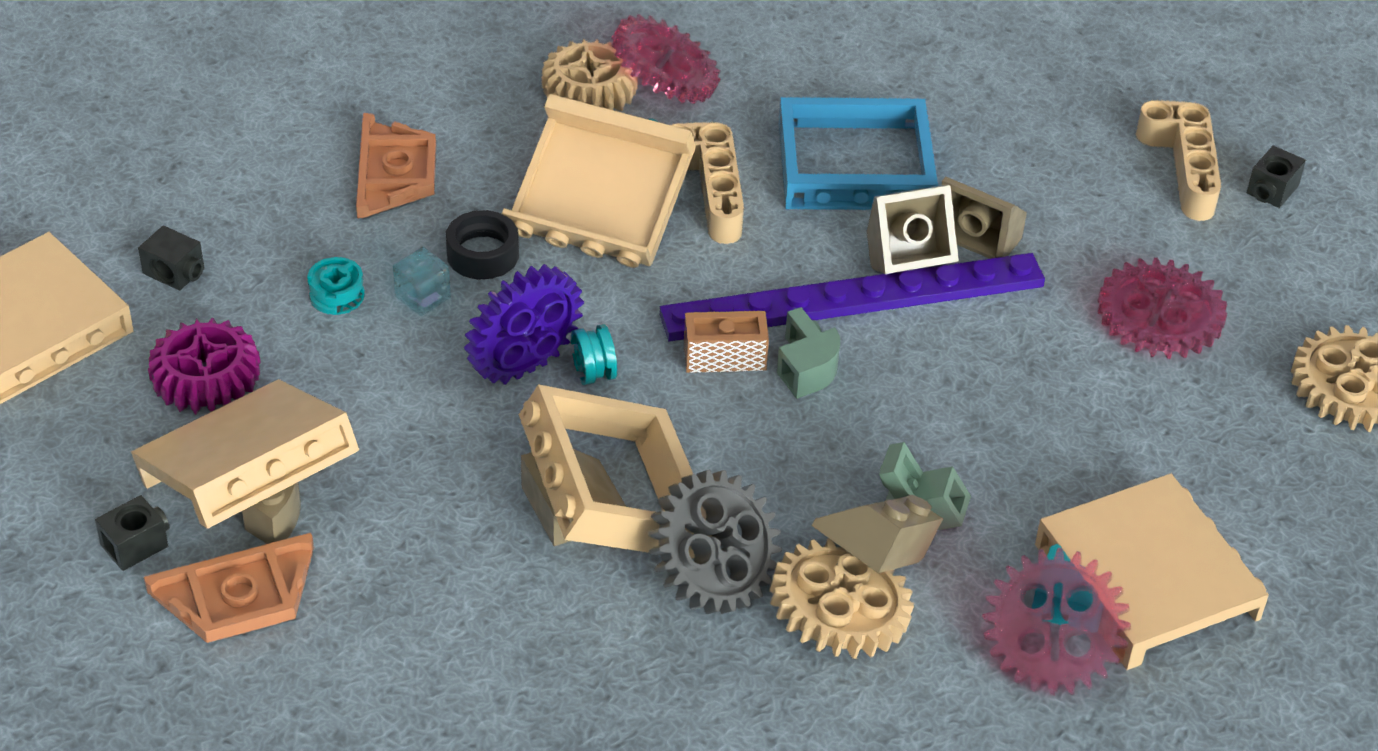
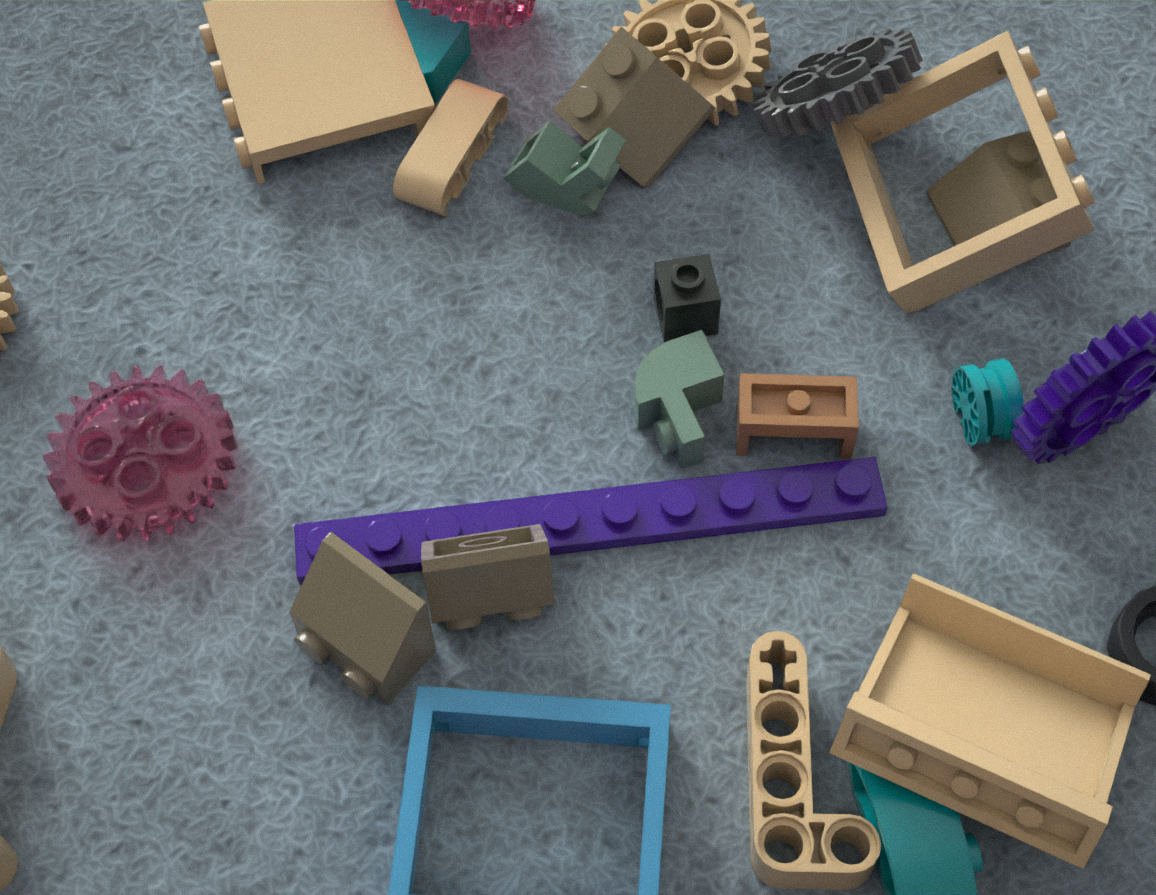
camera: 170 degrees left, 15 degrees up
(812, 409) = (686, 296): none -> pearl dark grey brick
(1018, 516) = (448, 146): none -> tan beam

